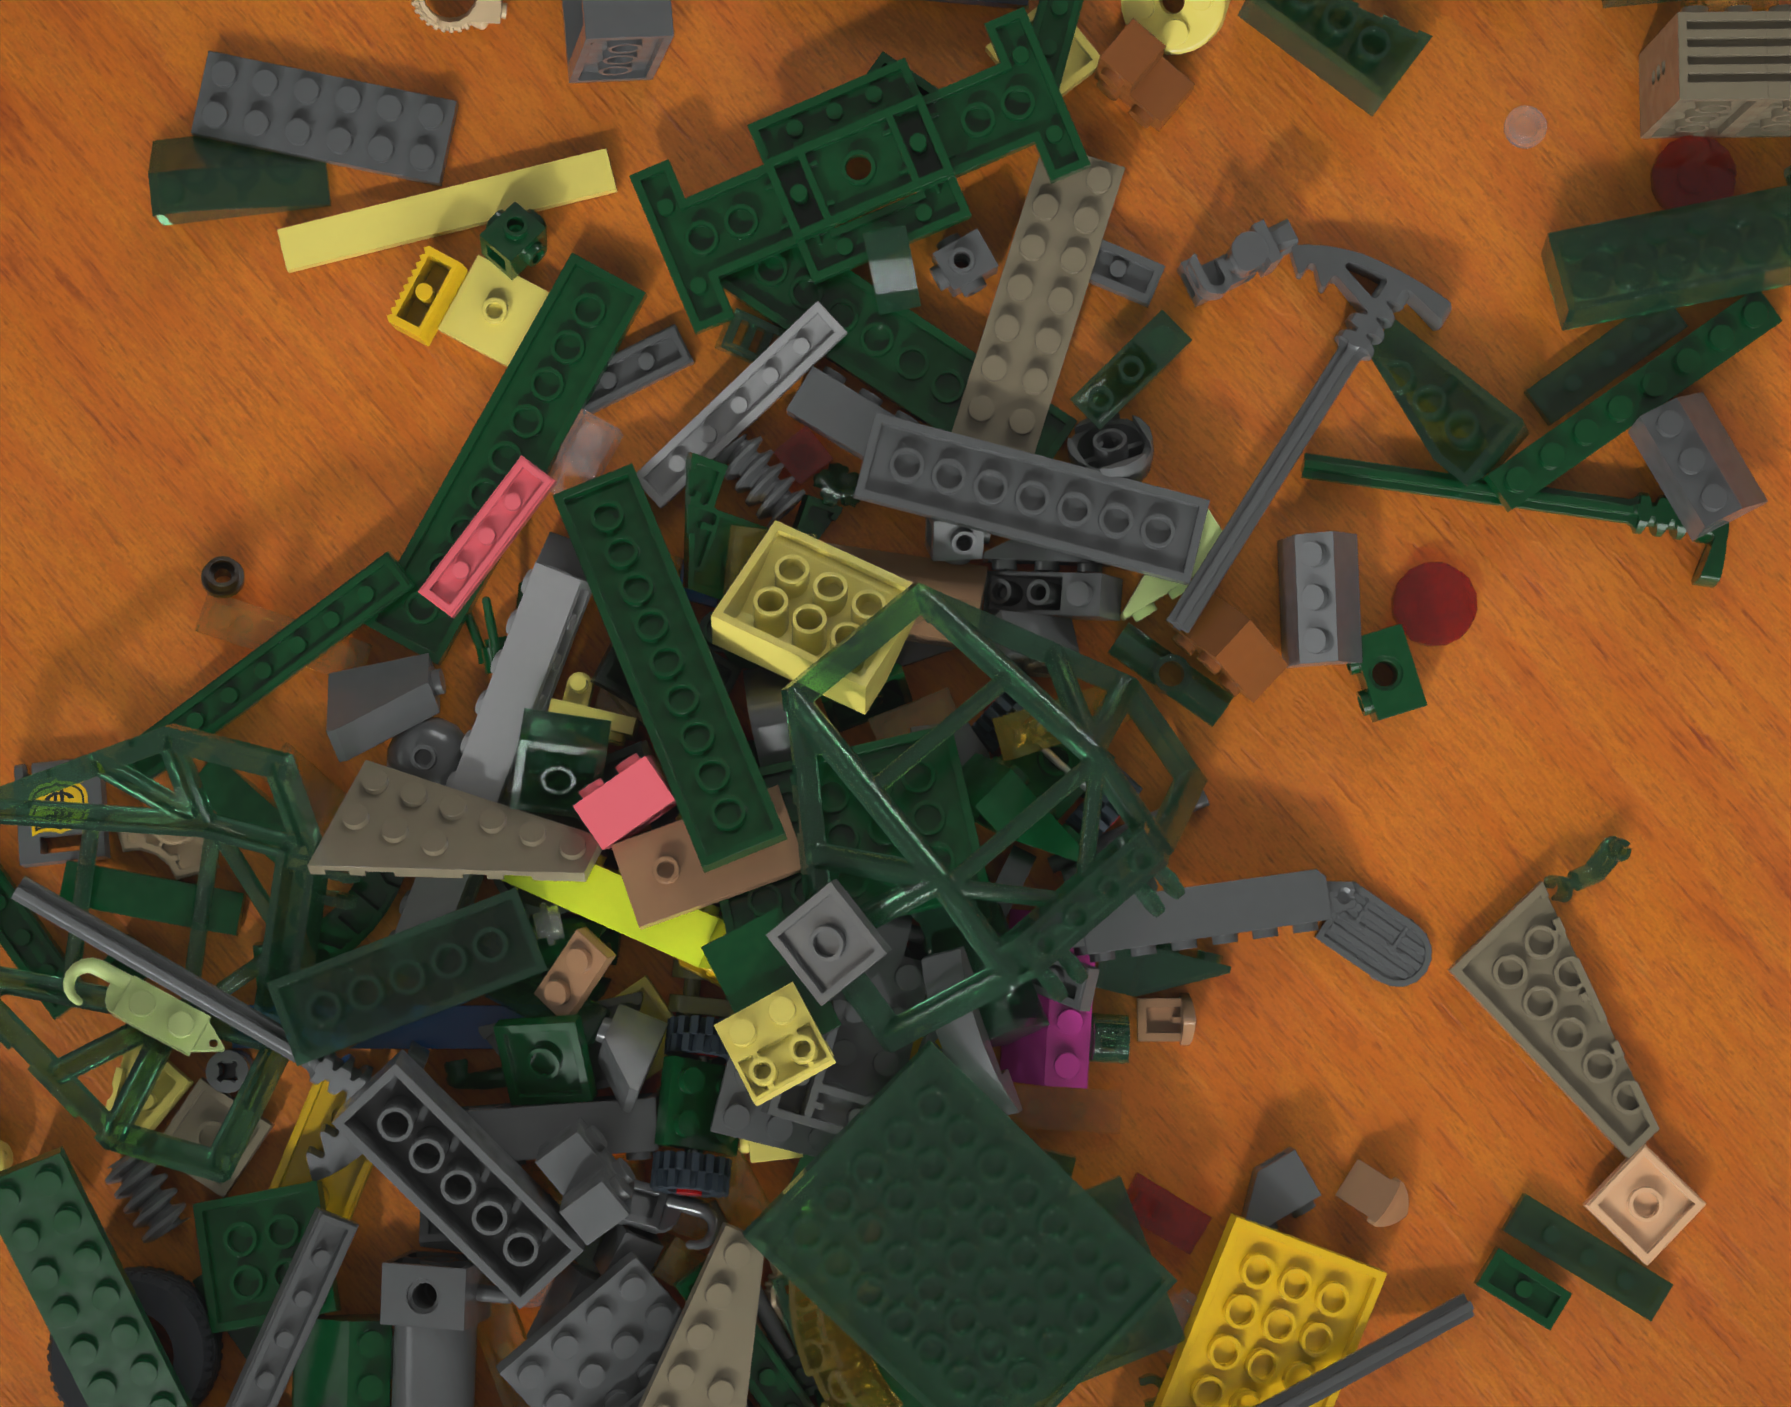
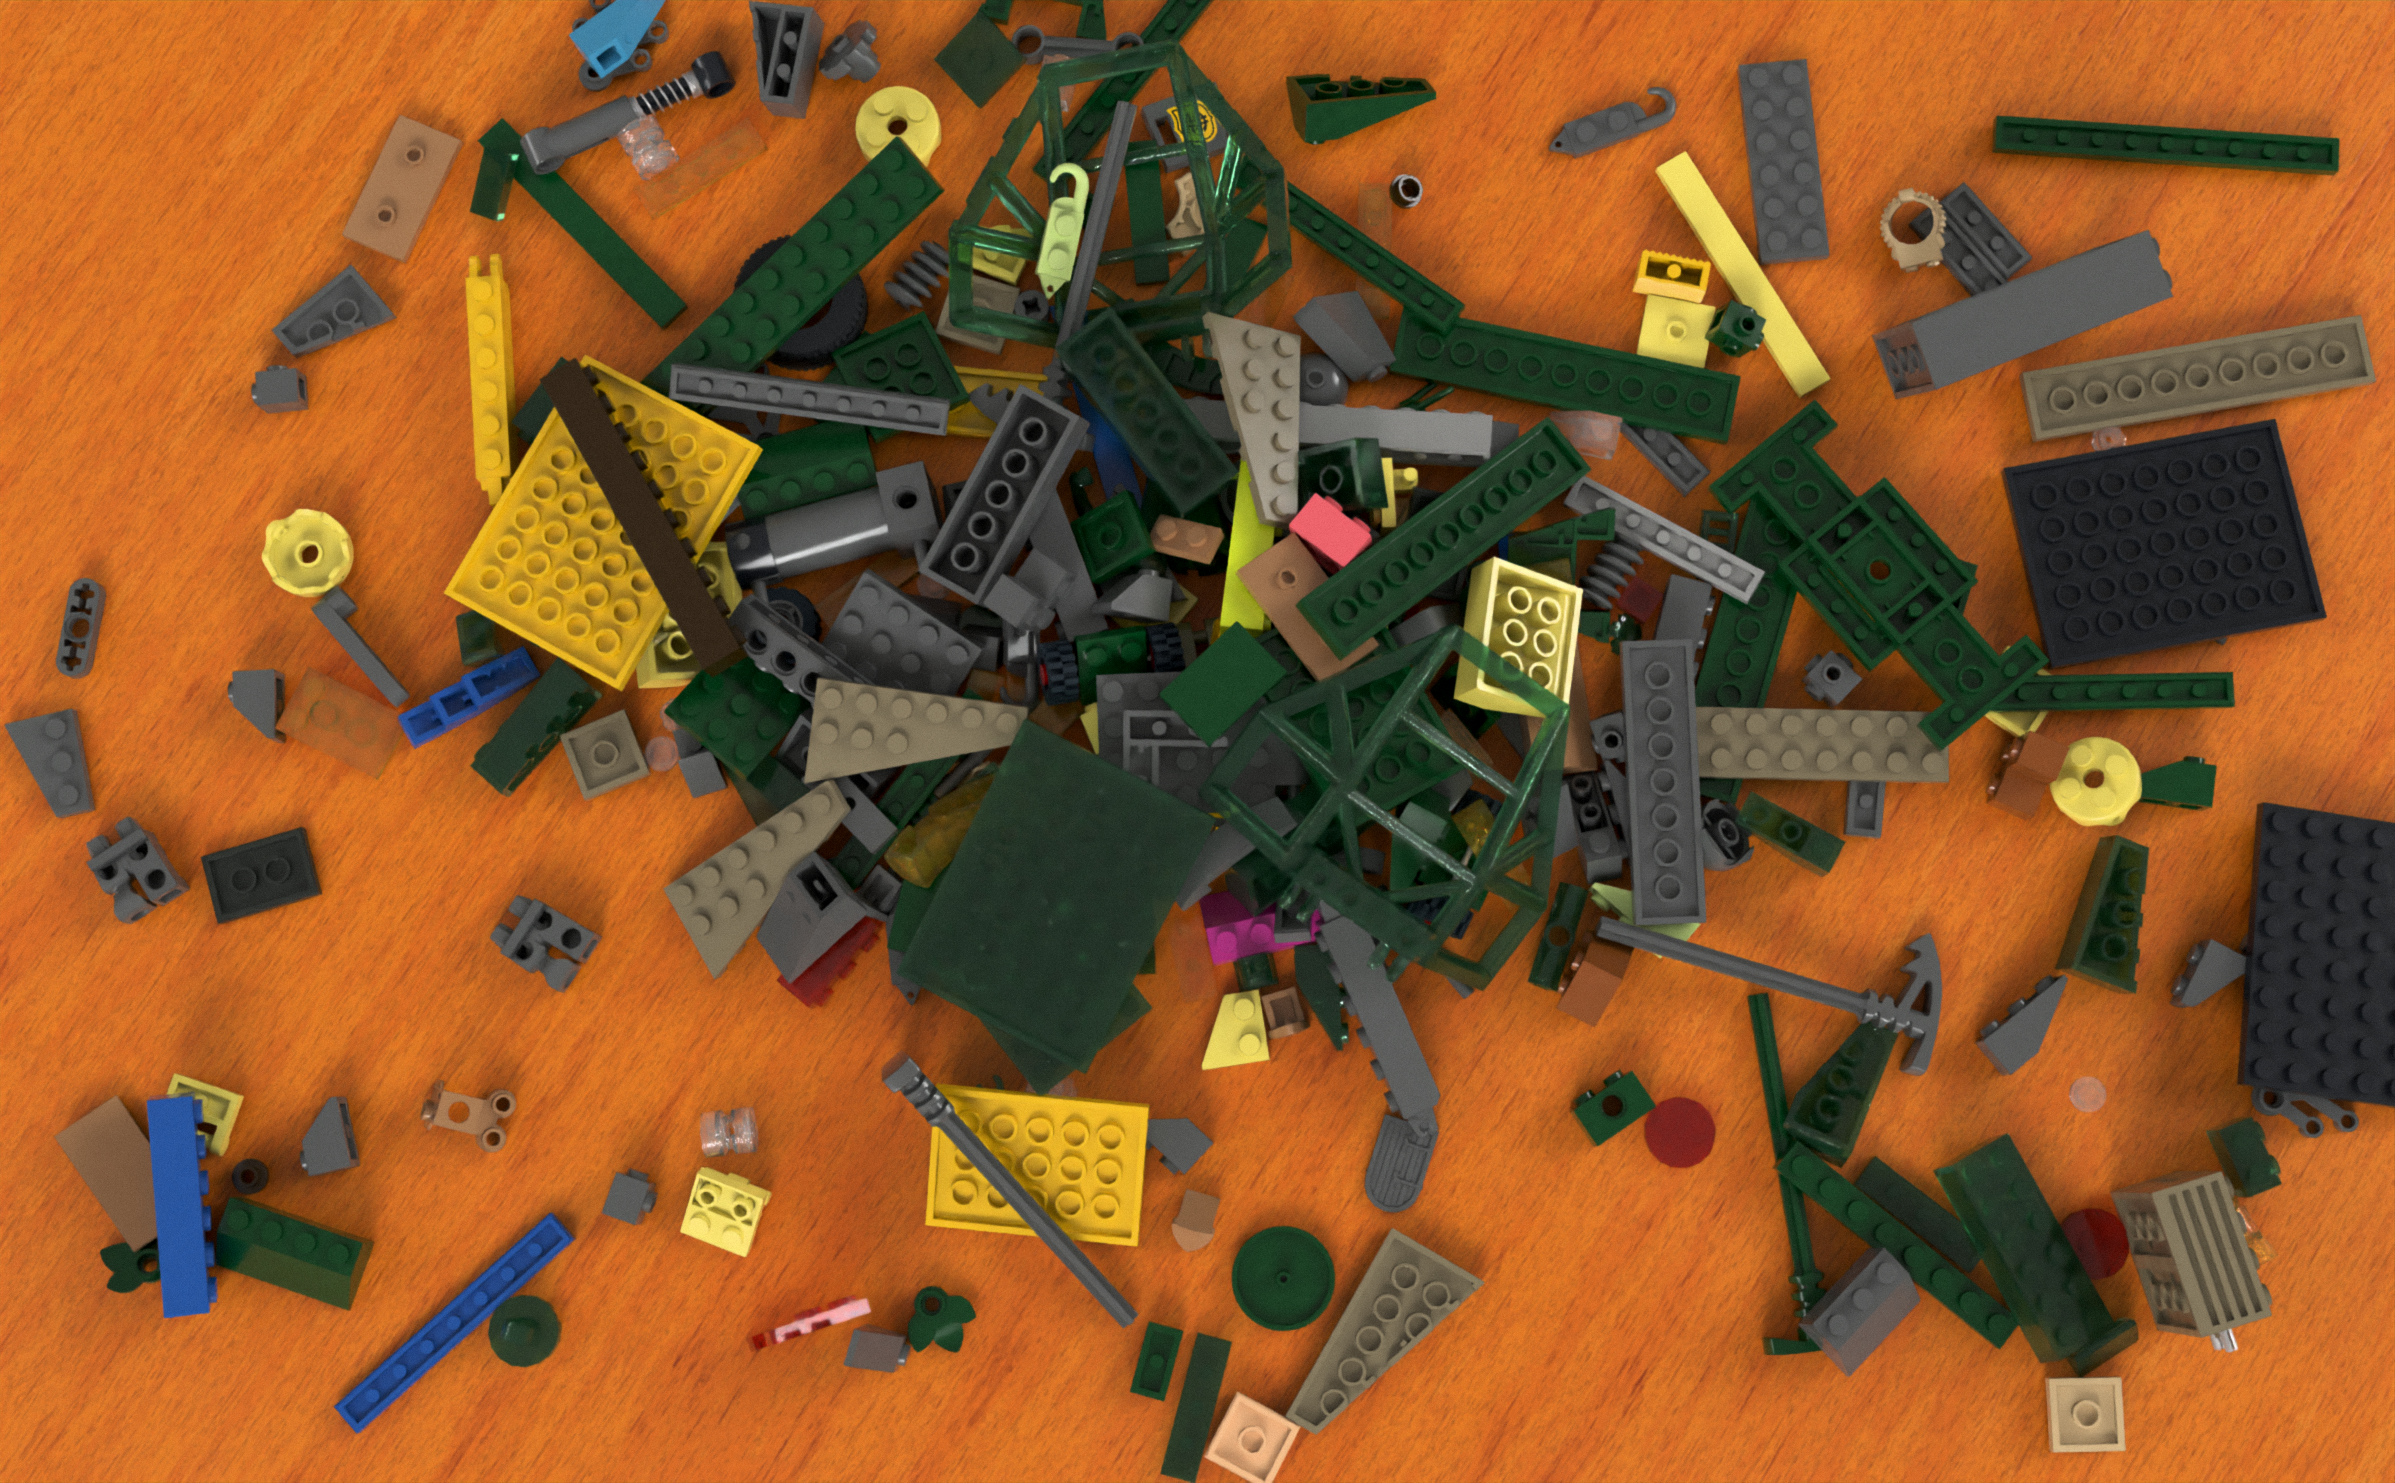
camera: 80 degrees right, 5 degrees down
(95, 623) = (1338, 108): none -> dark green wedge
(218, 306) = (1612, 126): none -> dark grey plate
(221, 180) = (1710, 101): clear green wedge -> none
(487, 537) = (1499, 377): coral tile -> none
(549, 923) = (1218, 508): clear plate -> none
(775, 1044) = (1180, 697): light yellow plate -> none
(828, 942) = (1271, 713): dark grey plate -> none
(891, 269) = (1808, 621): clear green slope -> none
(1166, 1213) = (1132, 1058): clear red plate -> none
(1172, 1081) = (1237, 1033): none -> light yellow wing
(1250, 253) = (1908, 898): dark grey hips -> none
(1319, 599) = (1655, 1036): dark grey slope -> none
(1435, 179) = (2021, 1033): none -> dark grey slope
(1469, 1112) = (1283, 1278): none -> dark green piece
(1594, 871) = (1505, 1323): clear green arm -> none

